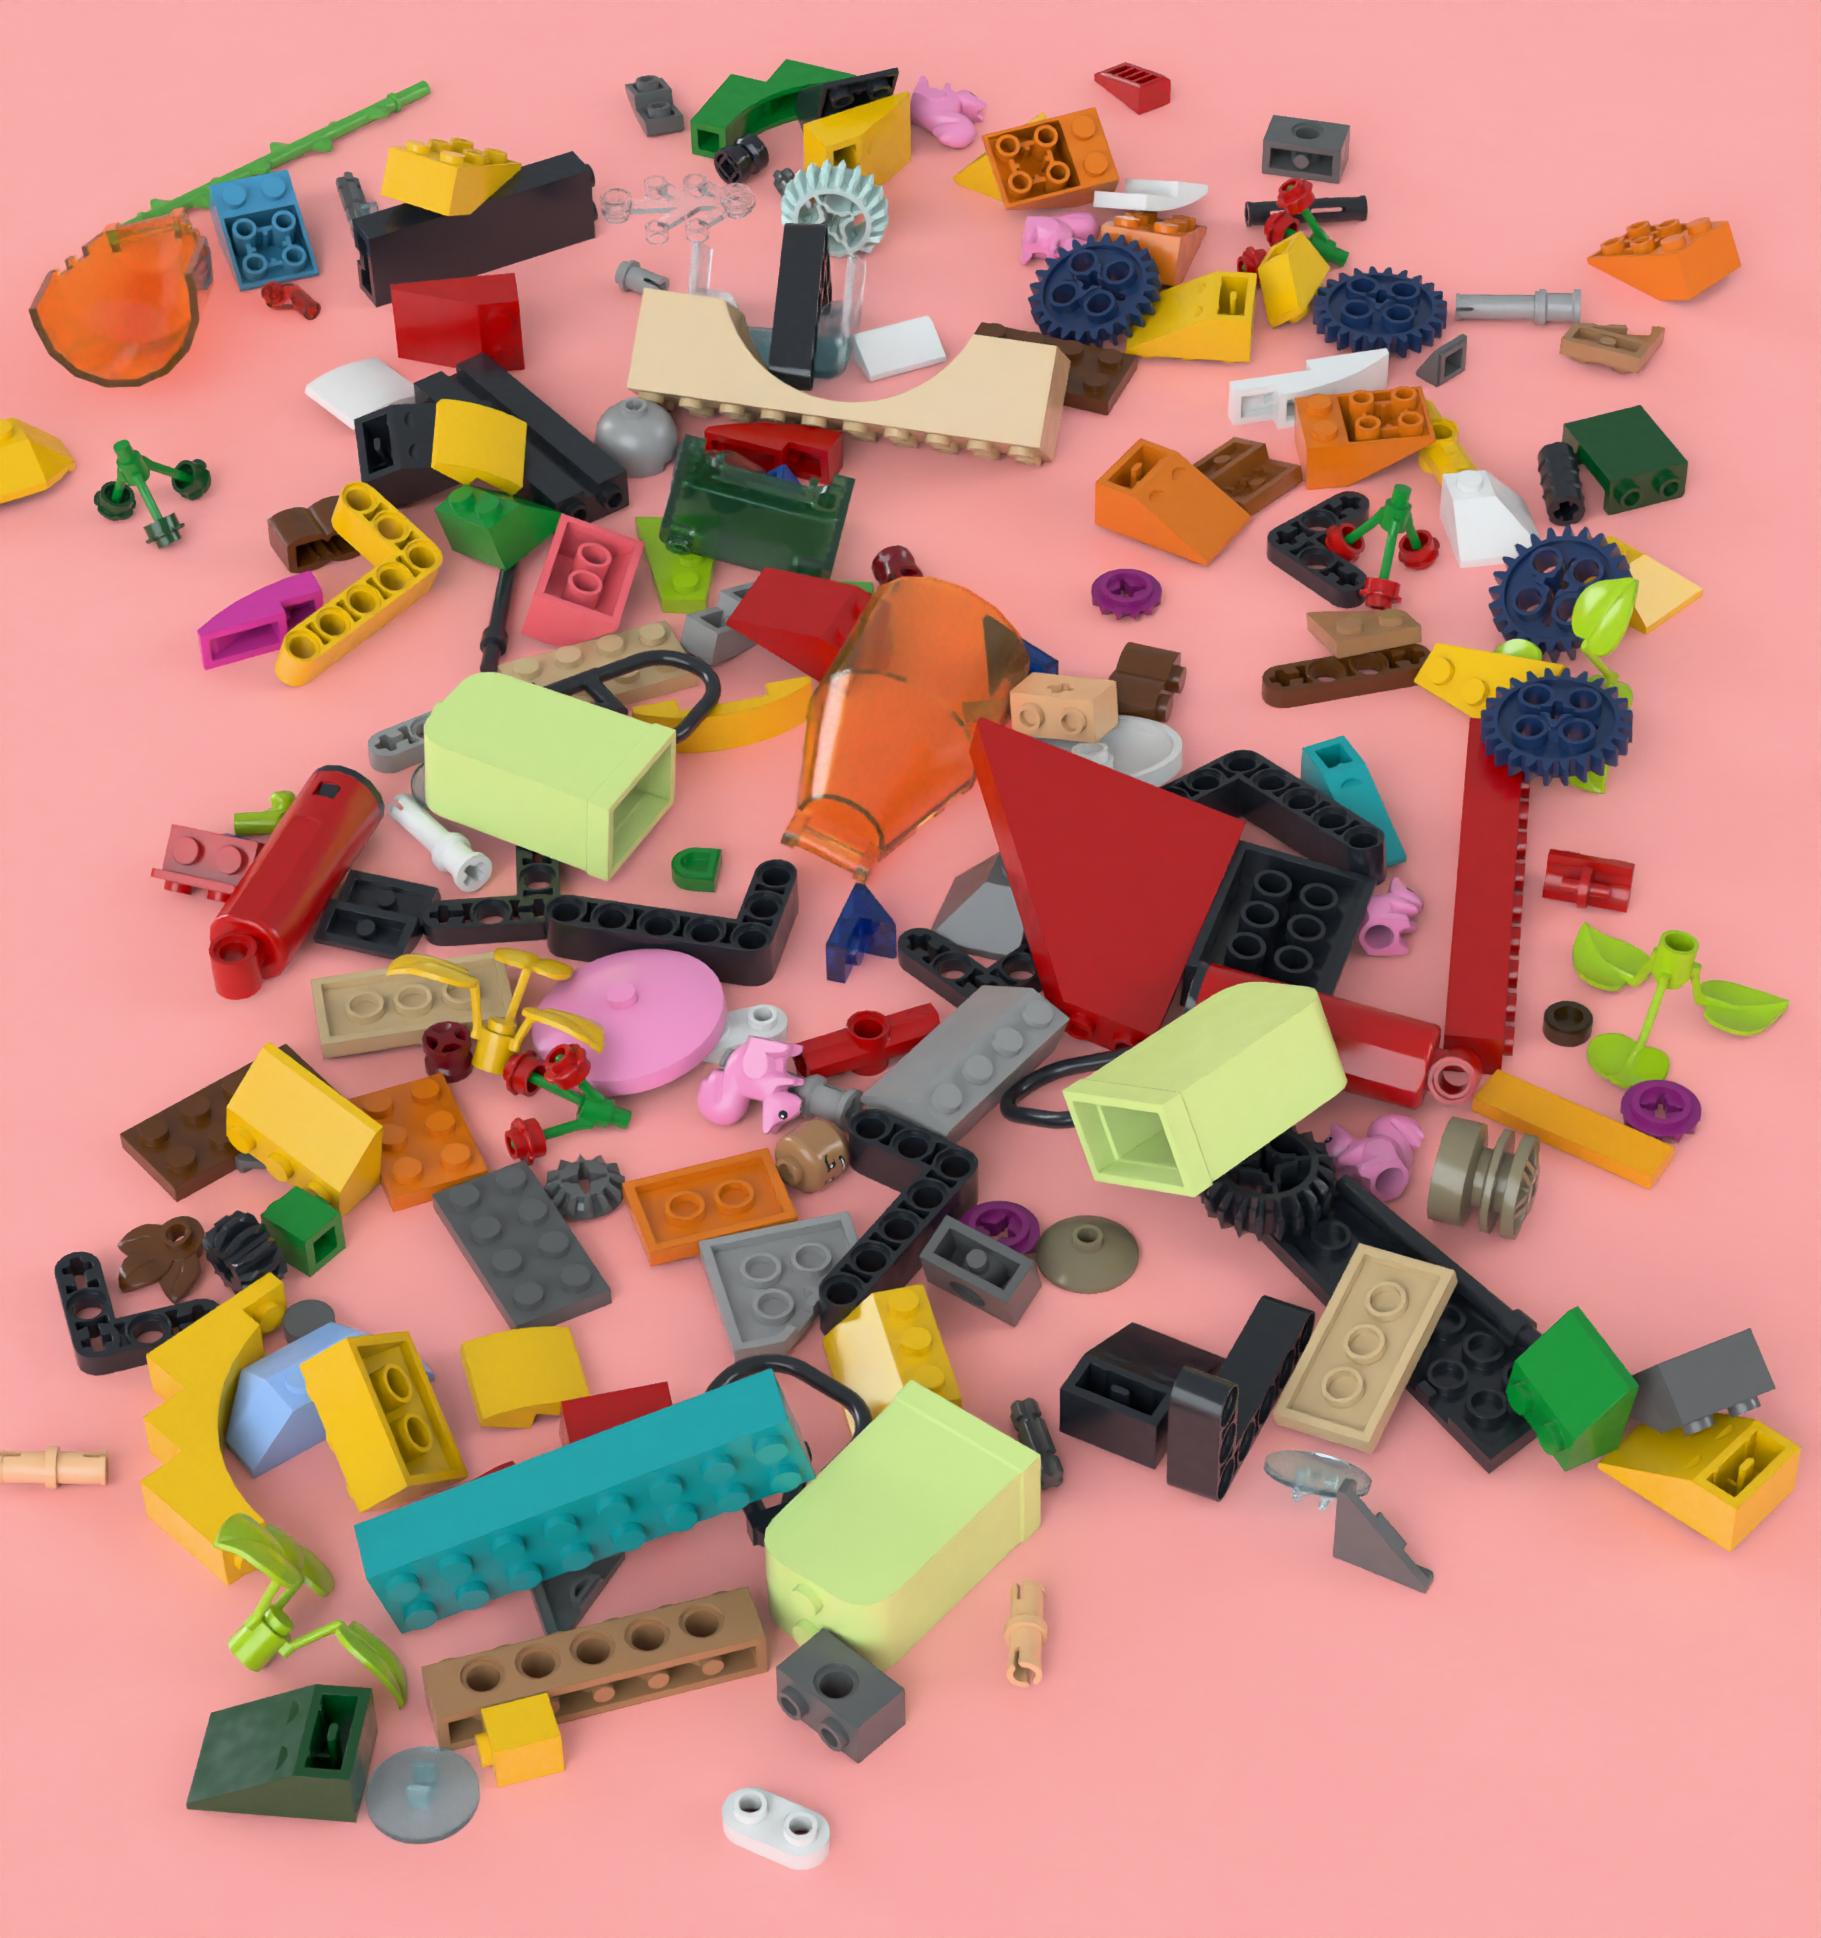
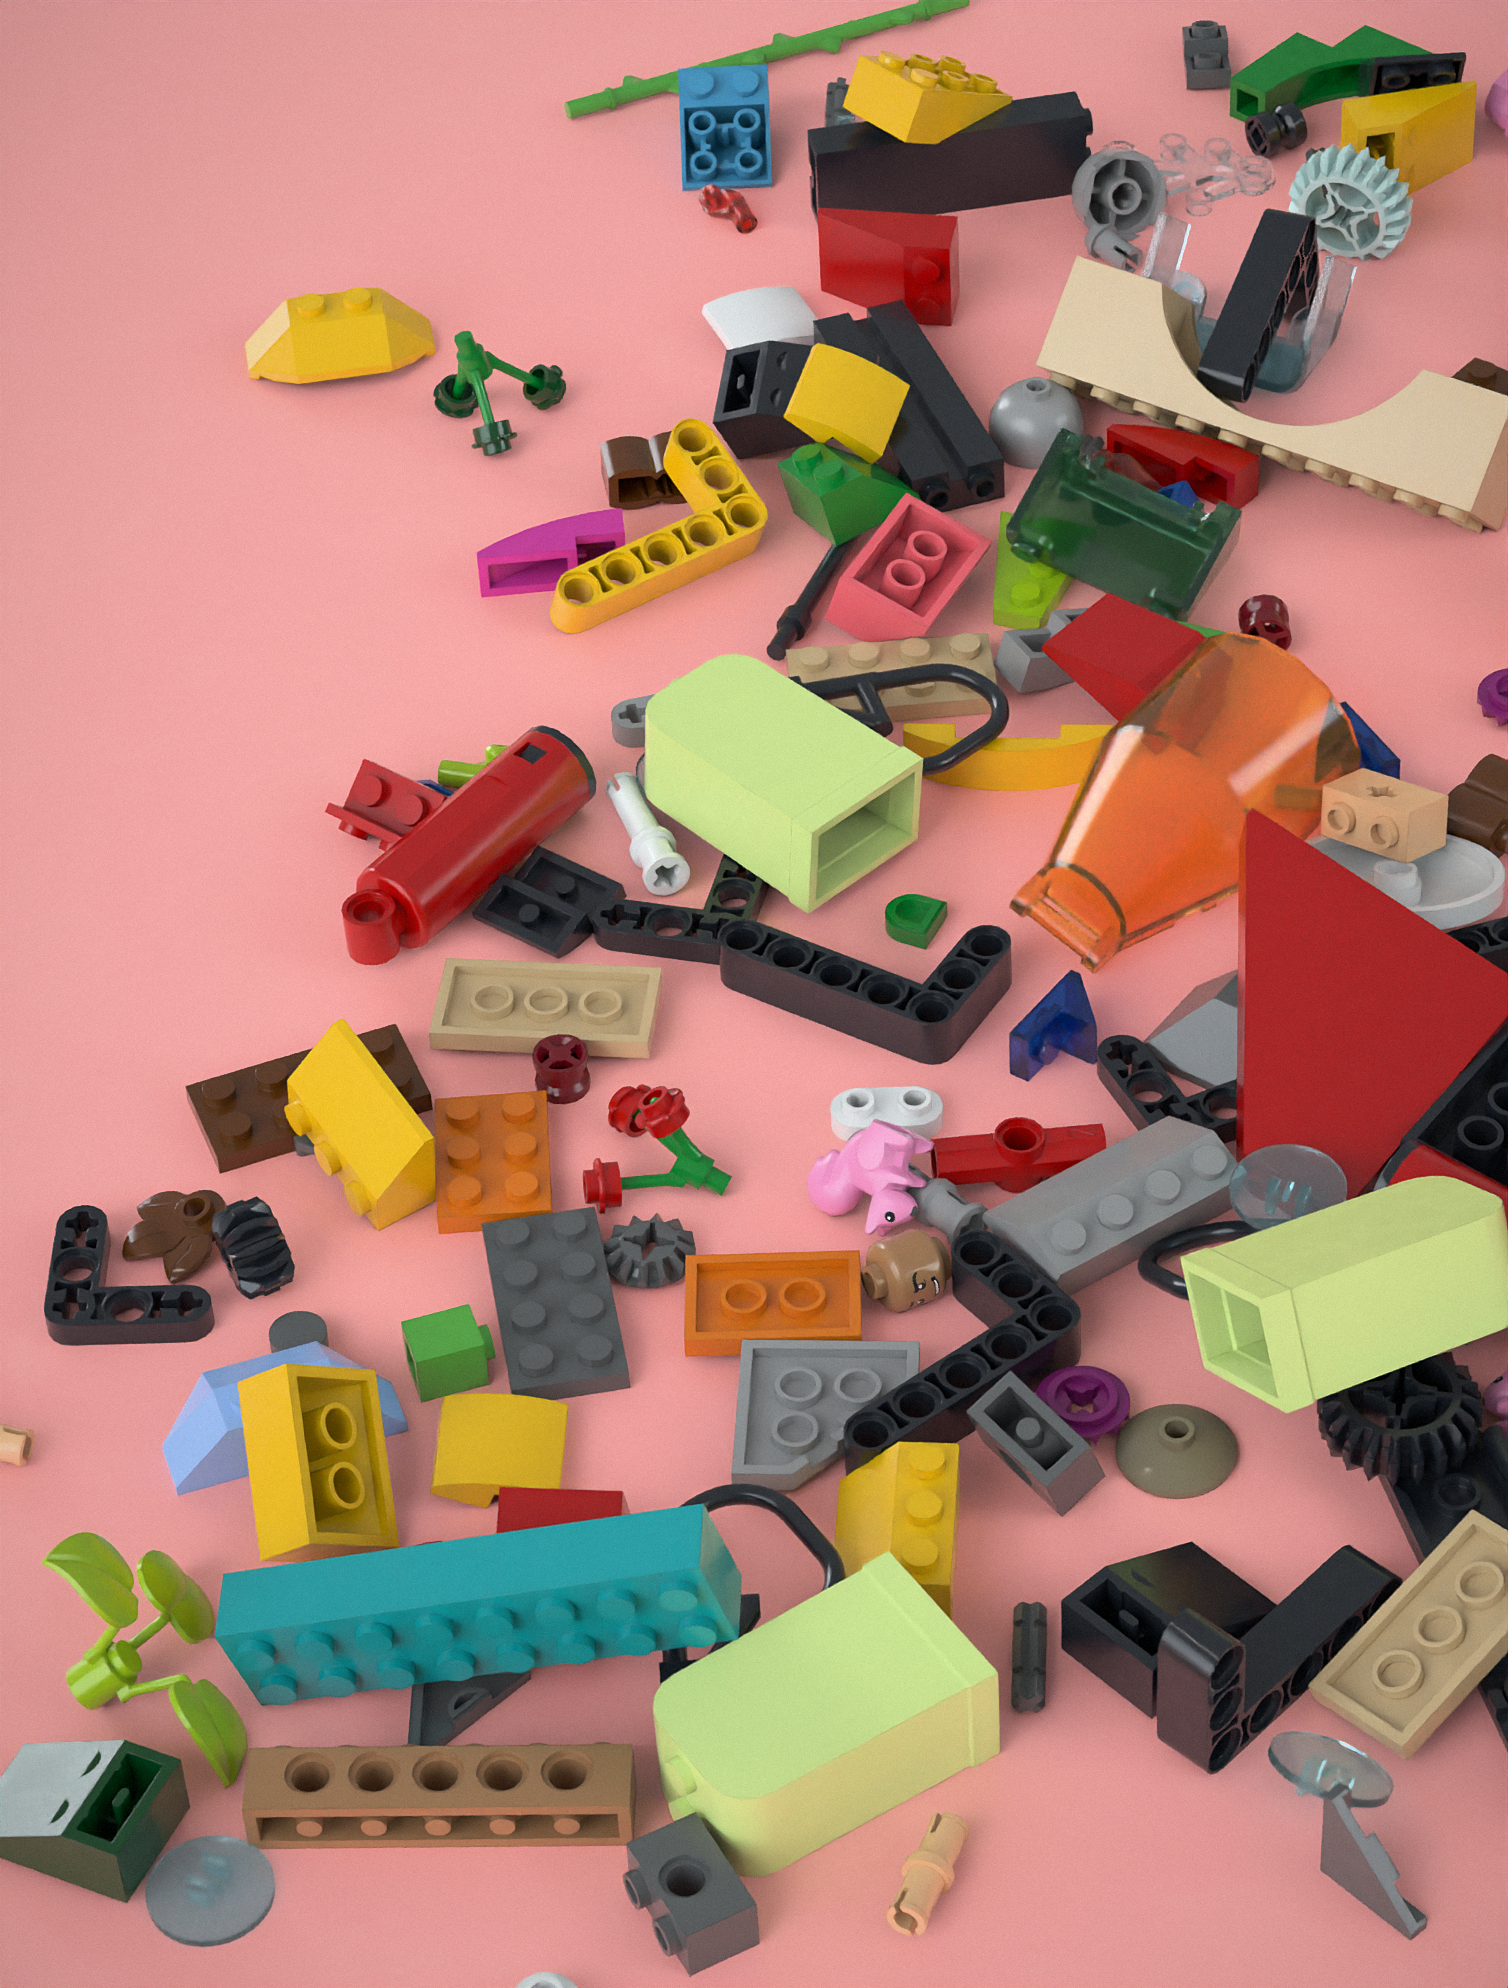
camera: 20 degrees right, 0 degrees up
(128, 302) = (540, 186): clear orange windscreen -> none
(187, 1433) = (128, 1423): yellow arch -> none
(305, 1230) = (329, 1233): green brick -> none
(447, 1307) = (447, 1352): none -> bright green brick
(499, 1038) = (619, 1062): yellow plant -> none
(520, 1740) = (329, 1856): yellow brick -> none
(631, 229) = (1119, 190): none -> light grey cylinder
(656, 1013) = (772, 1075): bright pink dish -> none
(898, 348) = (1366, 370): white slope -> none
(1109, 1020) = (1285, 1184): none -> clear light blue piece

